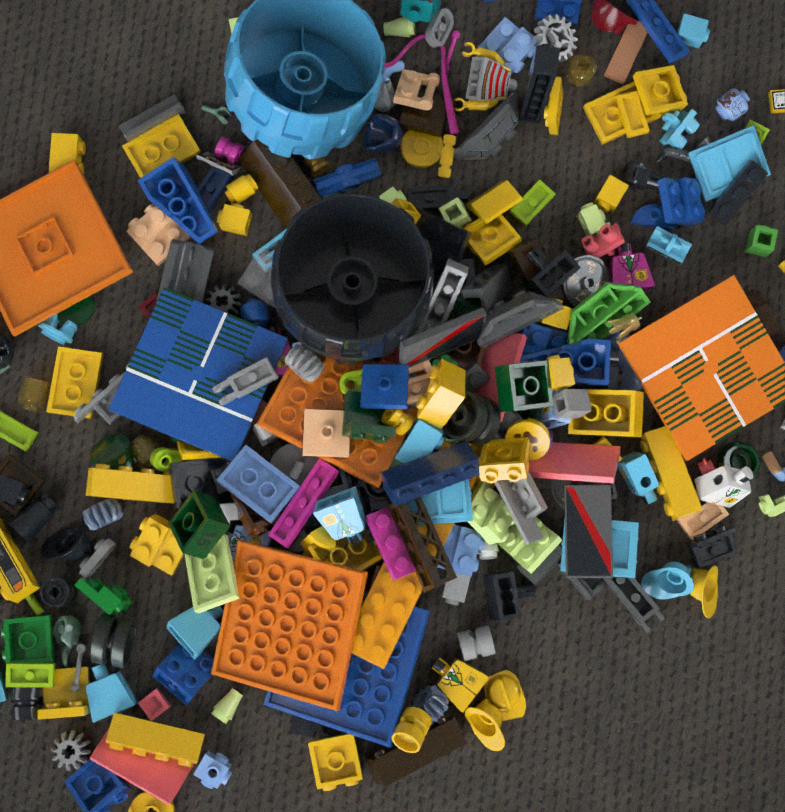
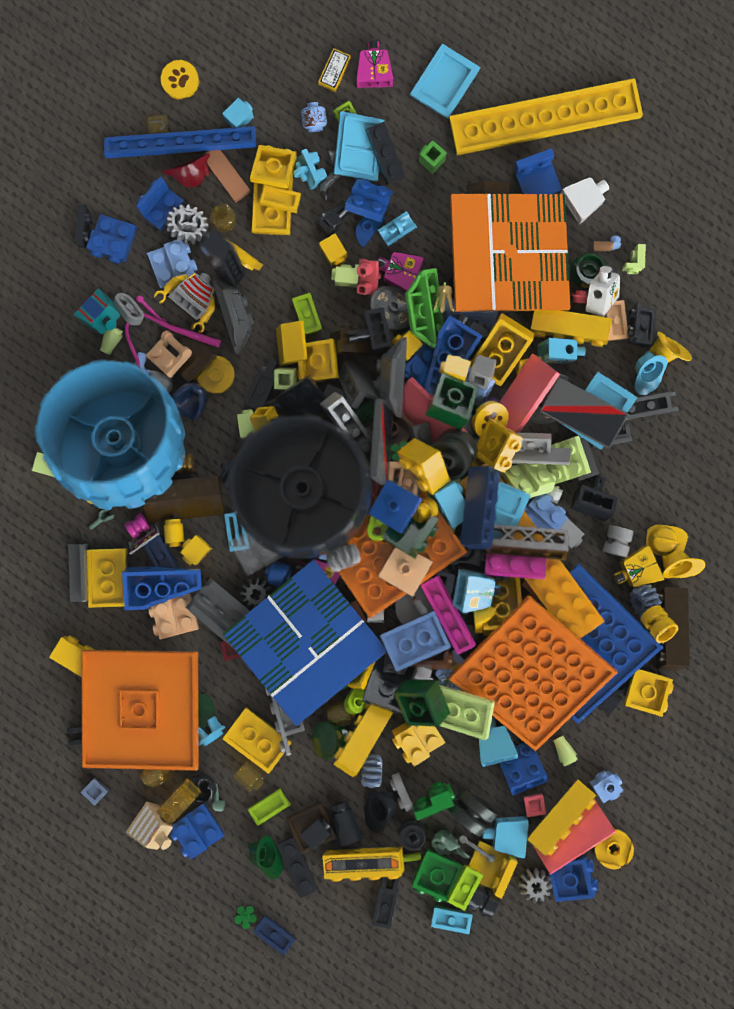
camera: 60 degrees left, 5 degrees up
(247, 380) = (331, 608): light grey hinge -> none
(347, 177) = (209, 445): blue piece -> none
(447, 155) = (234, 359): yellow axle -> none

